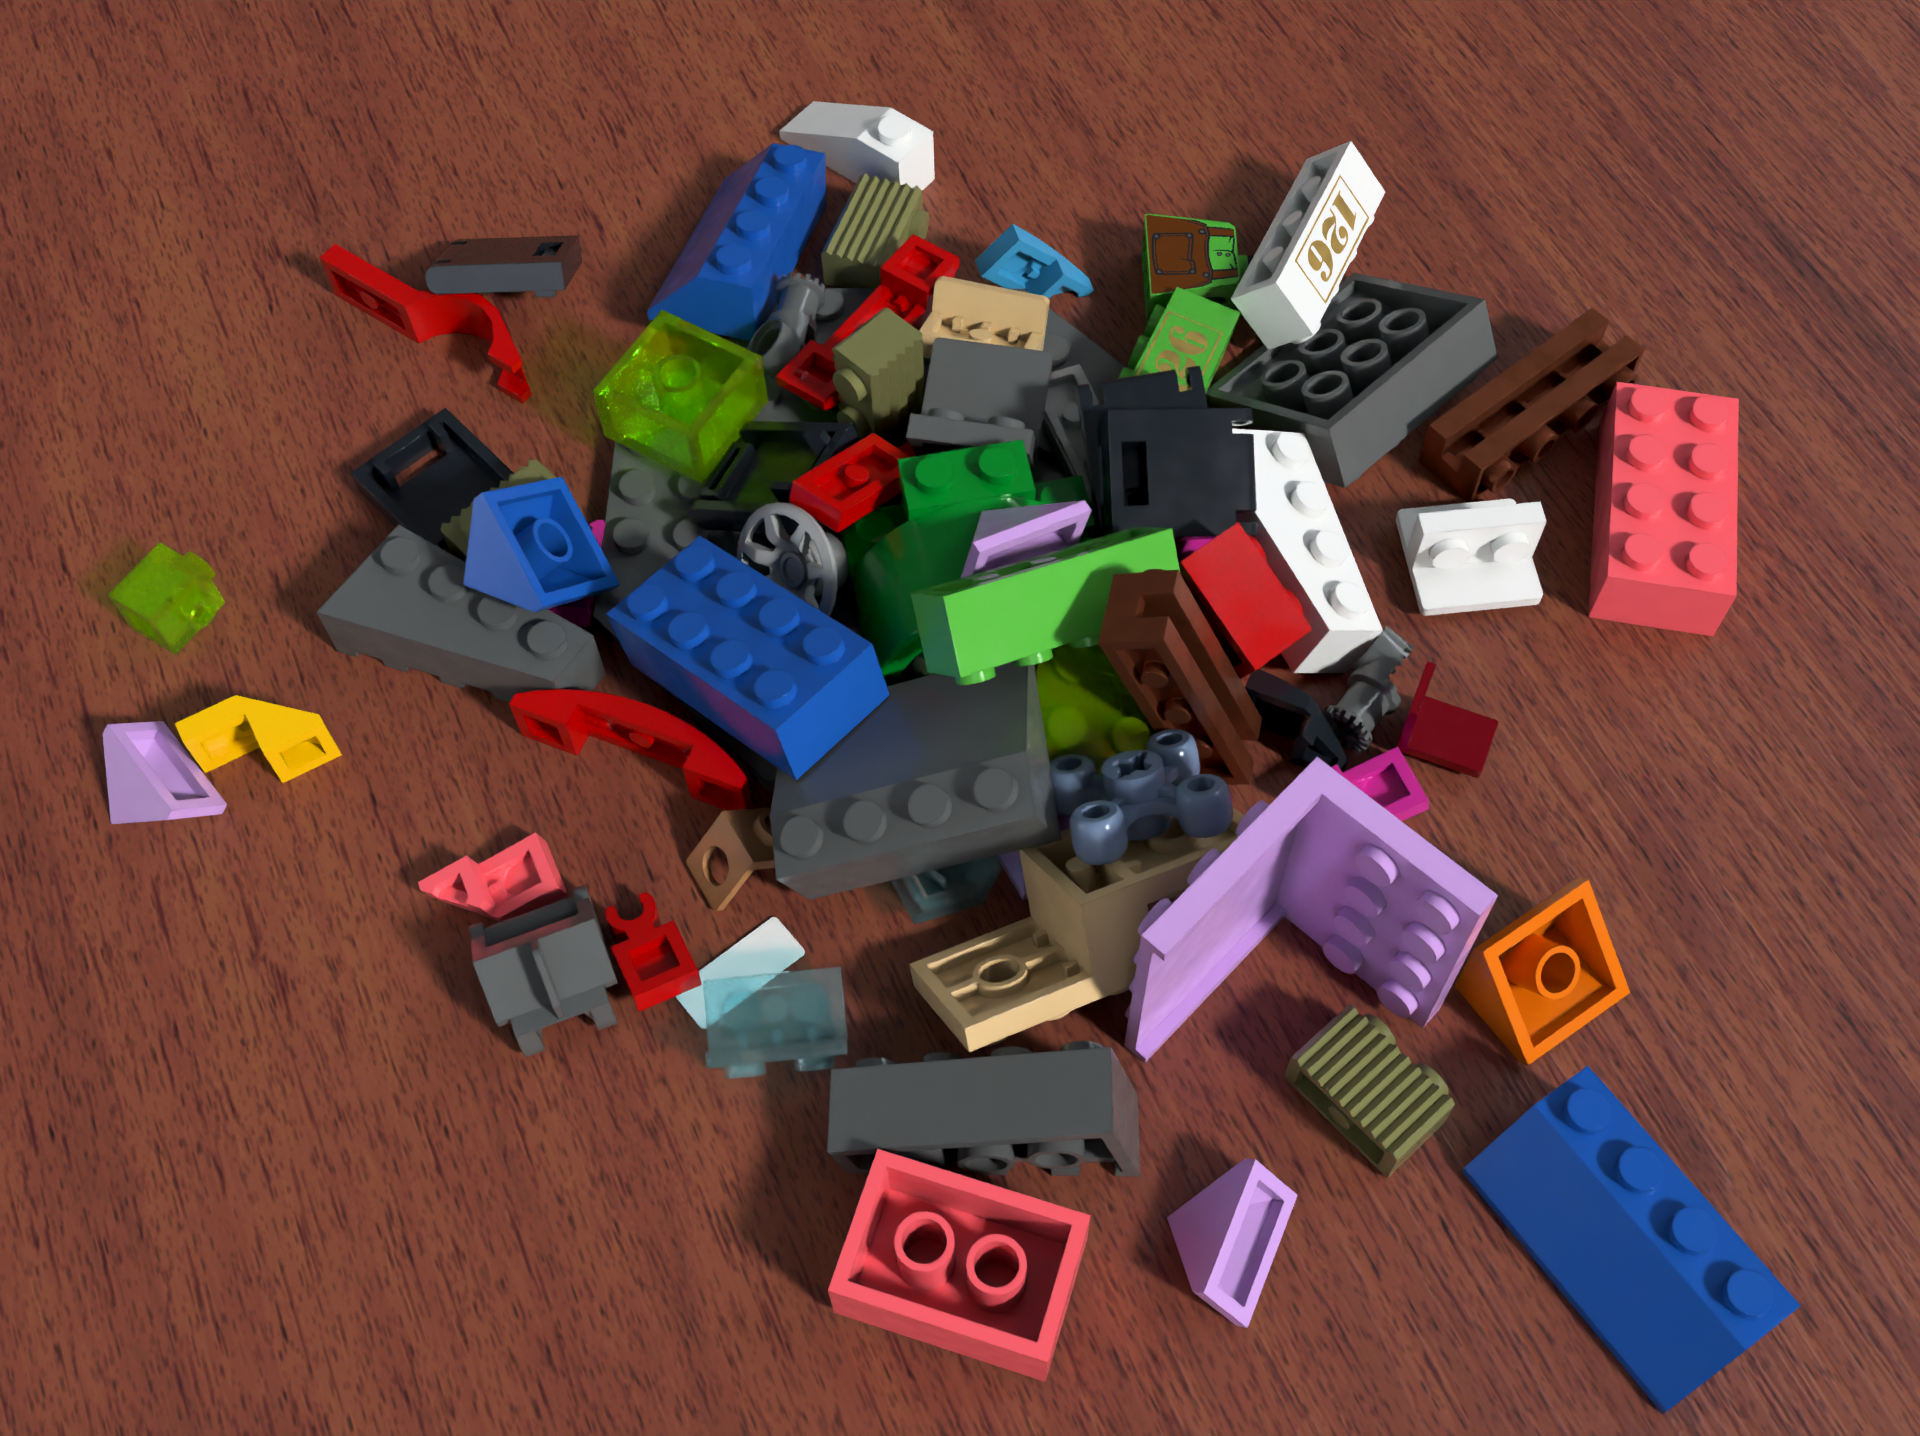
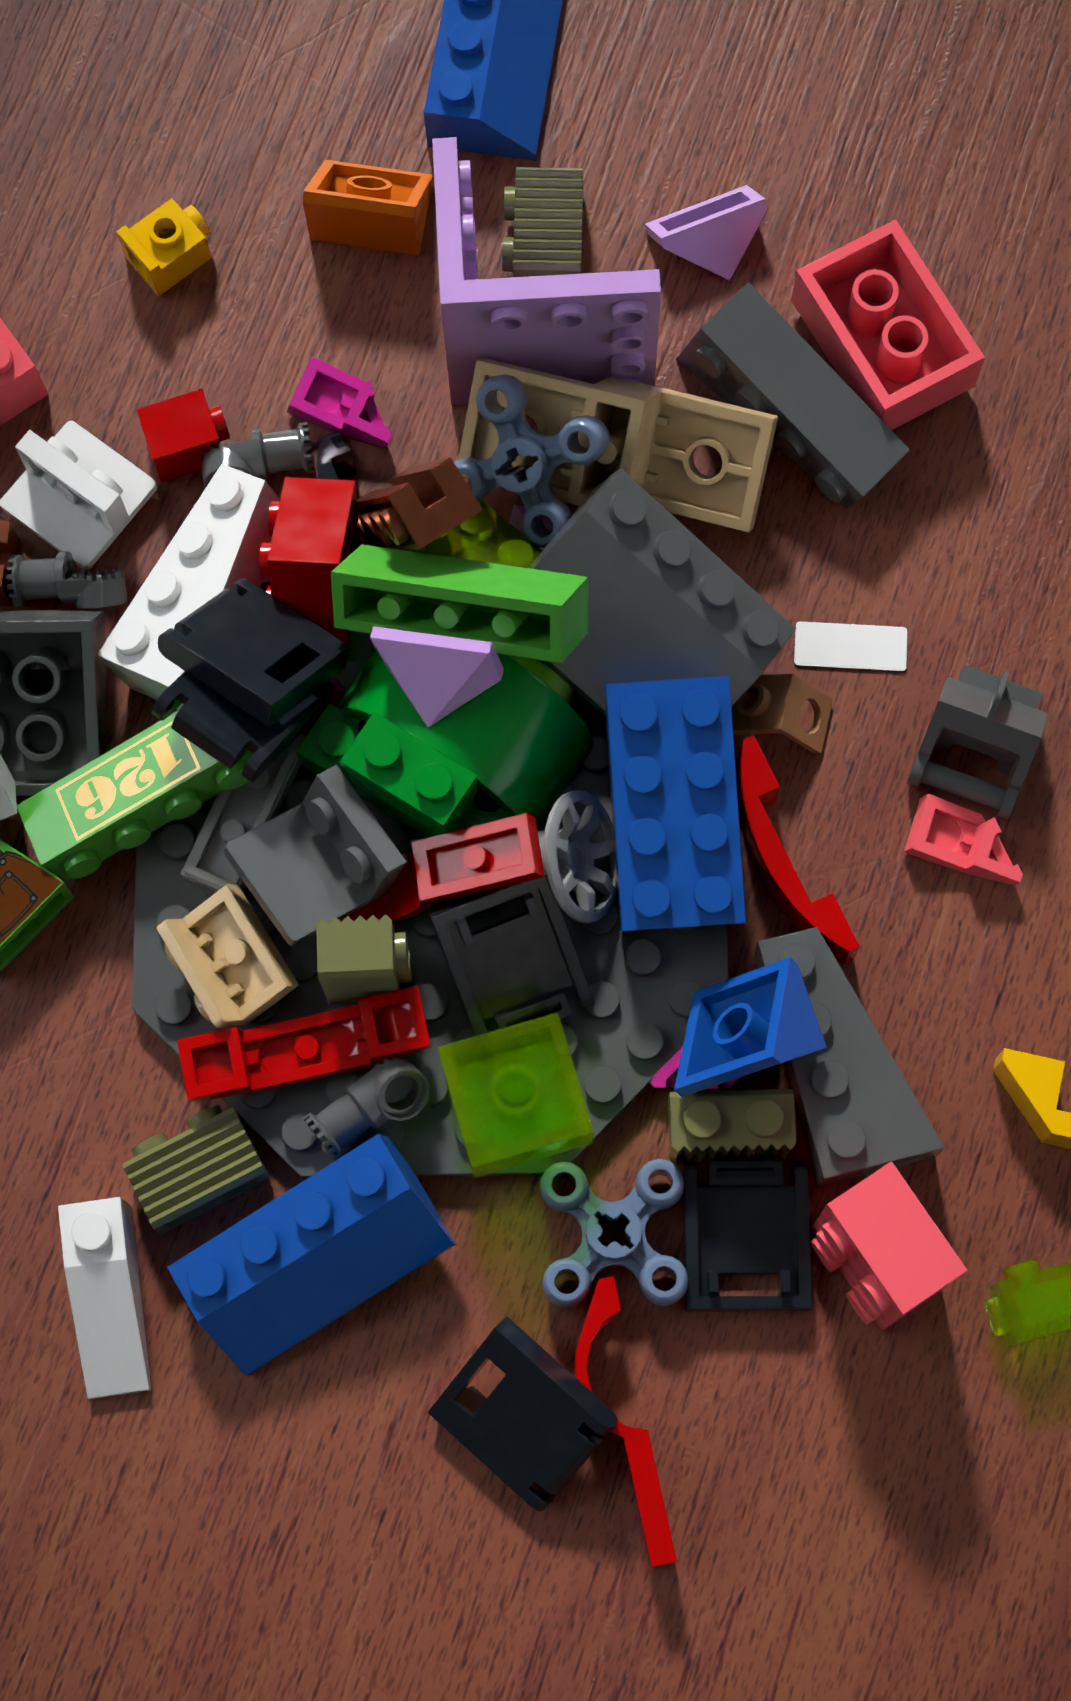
camera: 135 degrees left, 15 degrees up
(298, 495) = (884, 1247): none -> coral brick
(534, 405) = (634, 1212): none -> gear
(651, 956) = (905, 687): red plate -> none
(775, 1019) = (865, 571): clear light blue bracket -> none
(1028, 263) = (108, 1011): dark azure slope -> none
(1394, 485) = (59, 579): none -> dark grey connector
(1446, 732) = (245, 391): dark red bracket -> none
(1454, 641) = (180, 432): none -> red brick
(1650, 784) = (166, 245): none -> yellow brick

